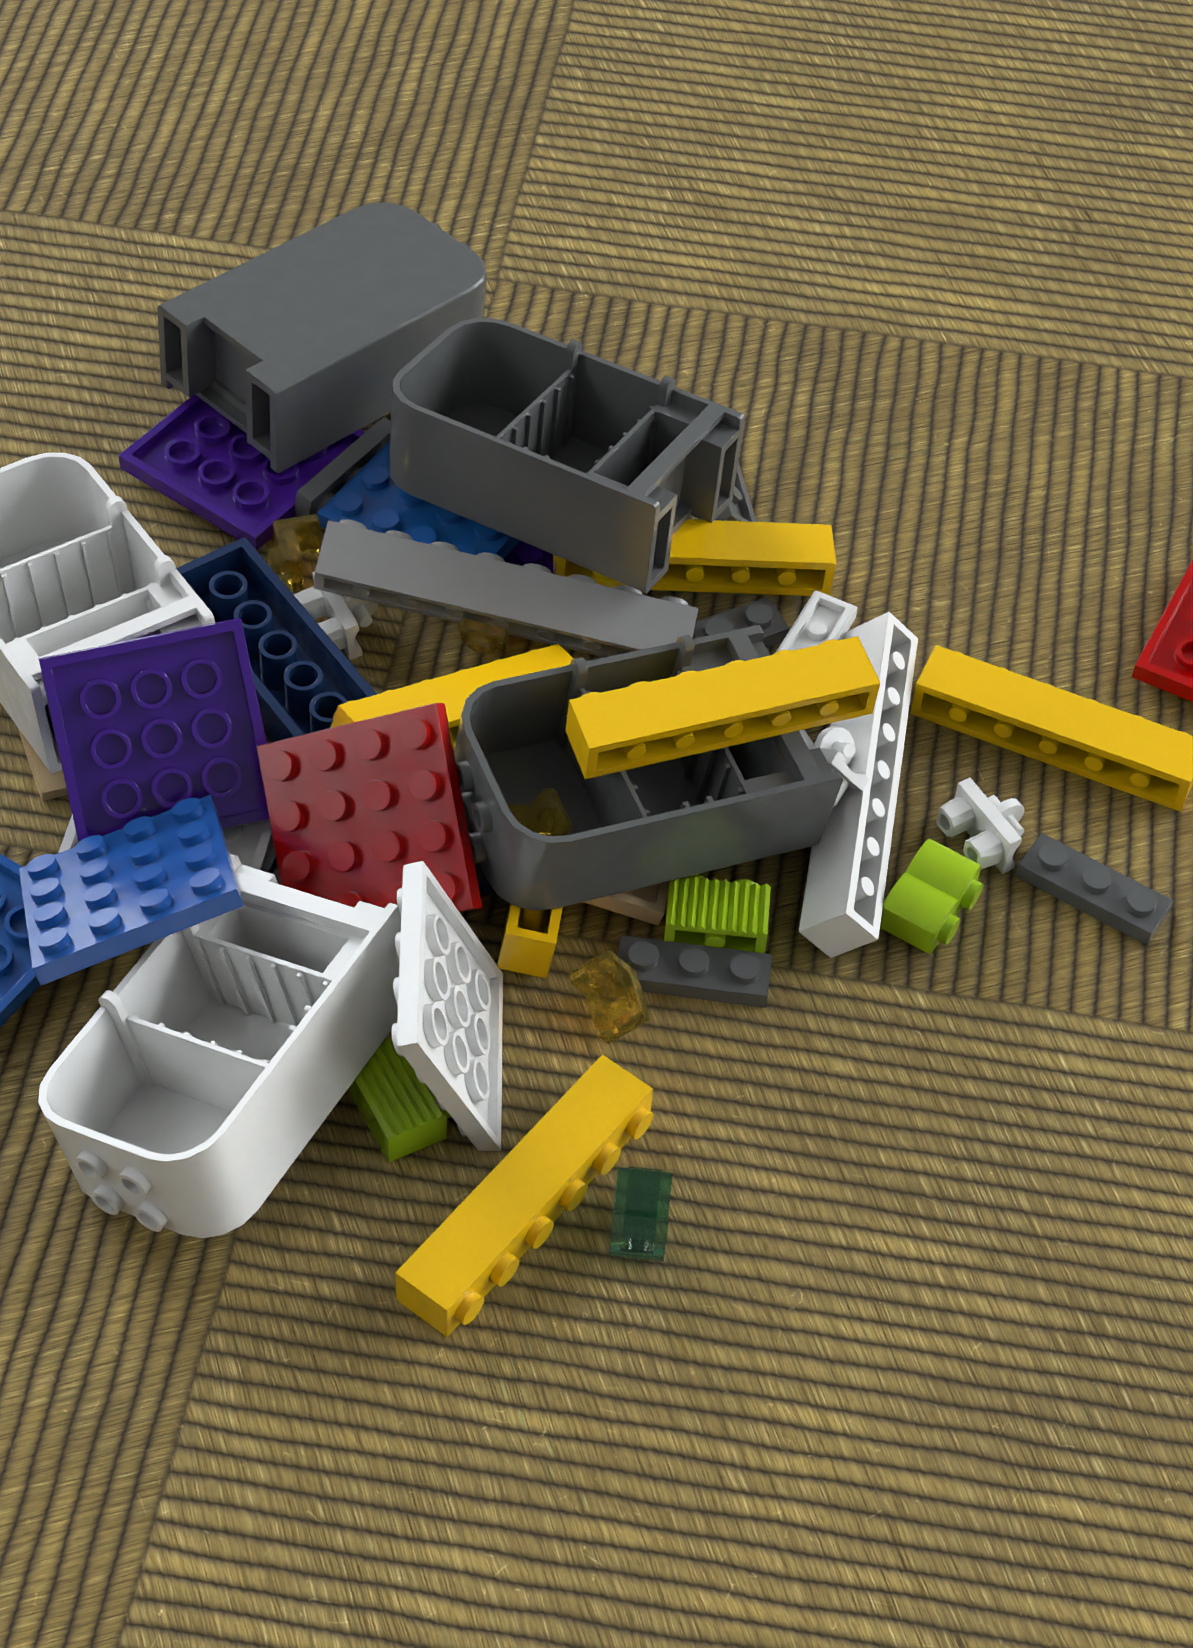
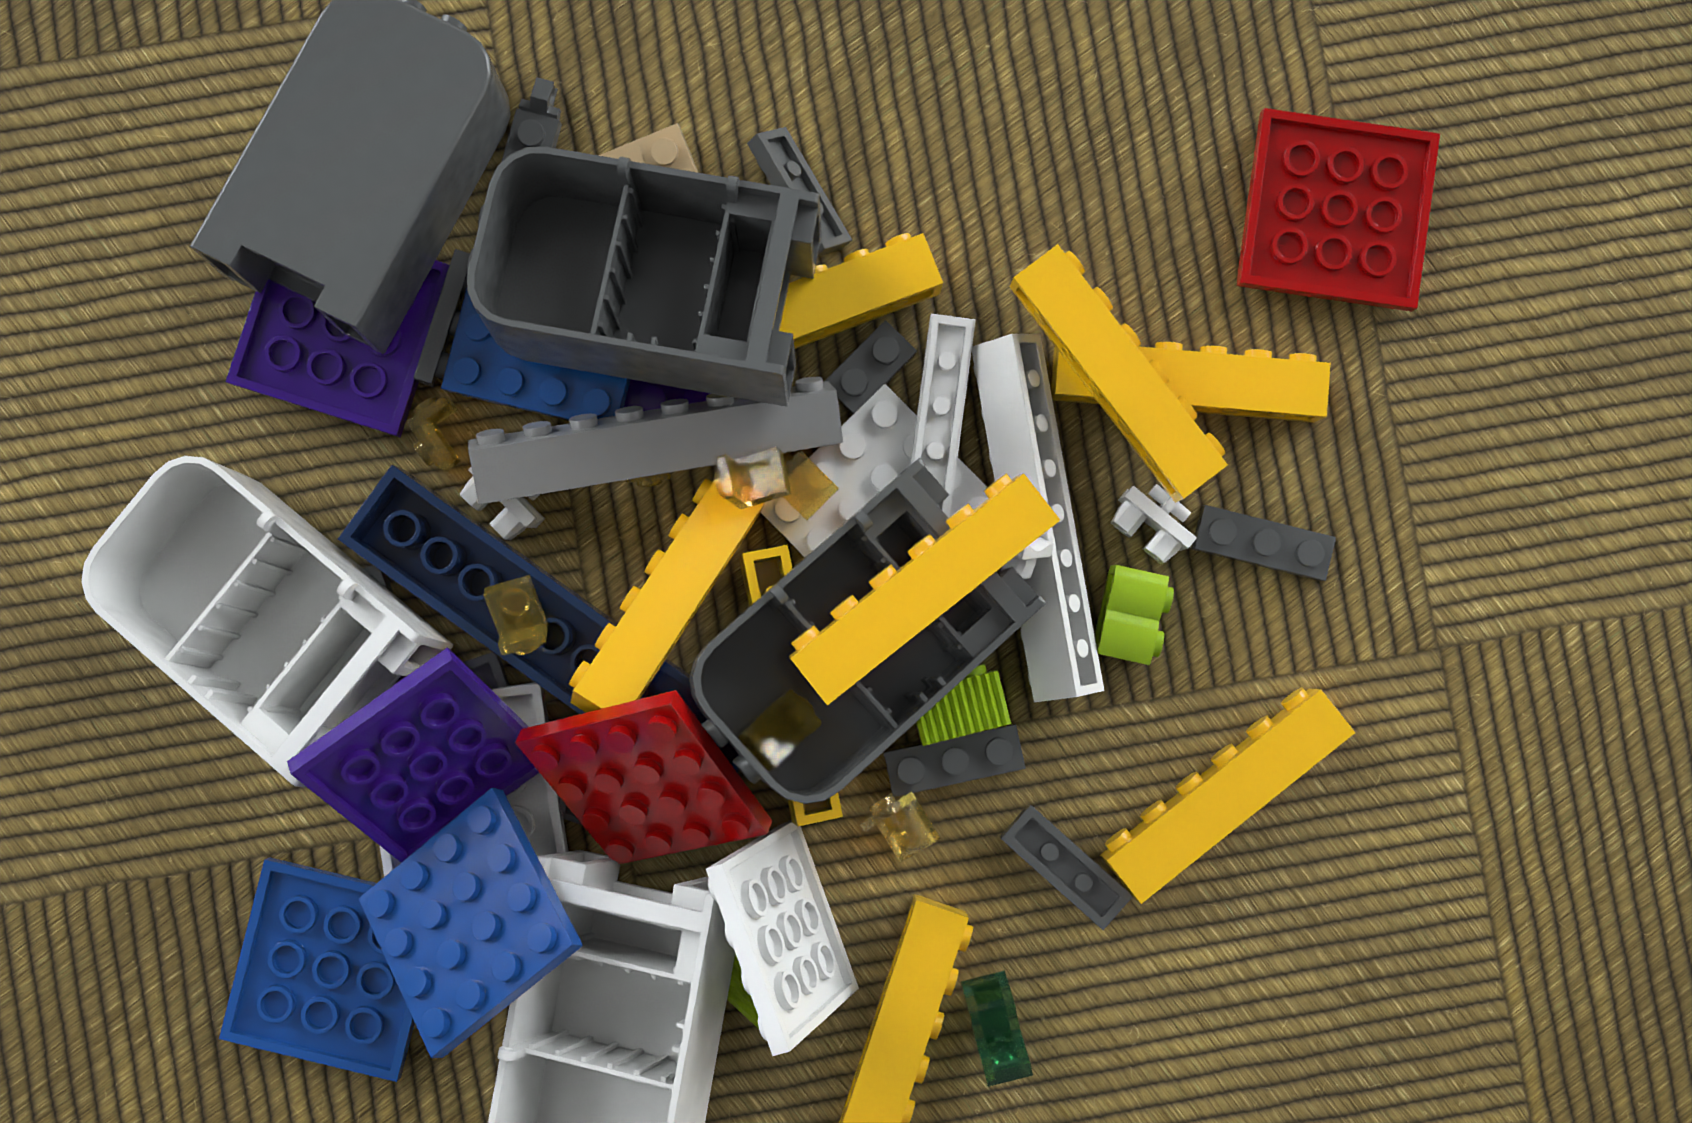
camera: 20 degrees left, 35 degrees up
(307, 665) = (517, 615): none -> clear yellow bracket
(585, 643) = (752, 478): none -> clear yellow bracket
(778, 1098) = (1066, 866): none -> dark grey plate
(979, 1084) = (1226, 793): none -> yellow brick
(986, 676) = (1118, 373): none -> yellow brick

